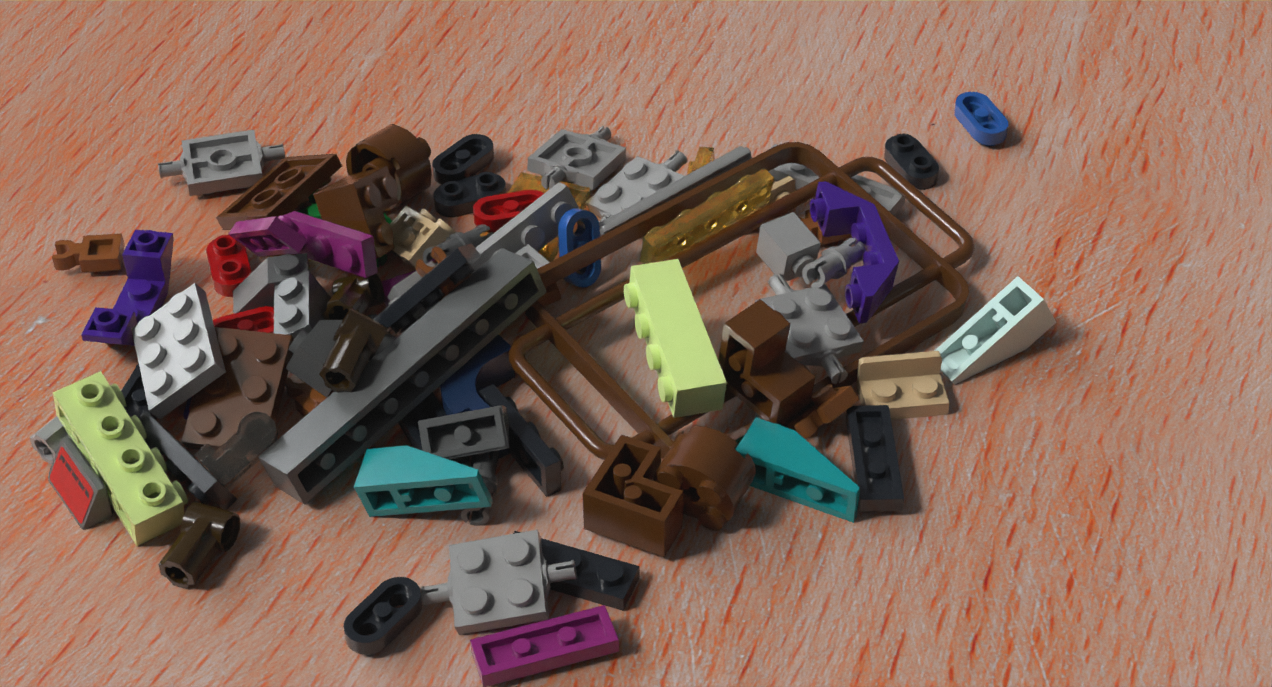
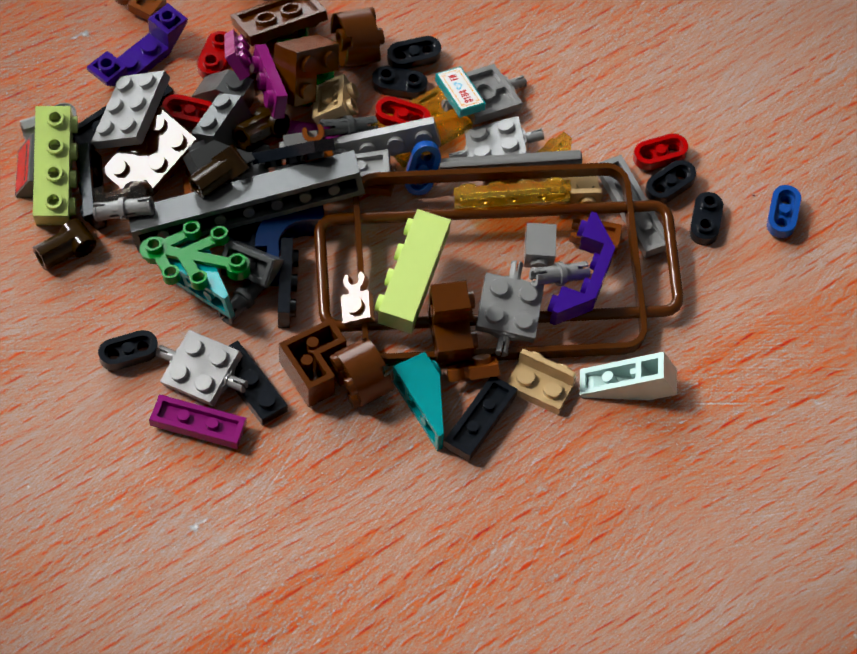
camera: 30 degrees right, 15 degrees up
(255, 453) = (123, 208): none -> light grey pin
(344, 475) = (158, 249): none -> green plant
(558, 158) = (460, 91): none -> tile
(632, 410) = (359, 303): none -> plate
(810, 123) = (659, 151): none -> red plate
(846, 141) = (668, 183): none -> black plate

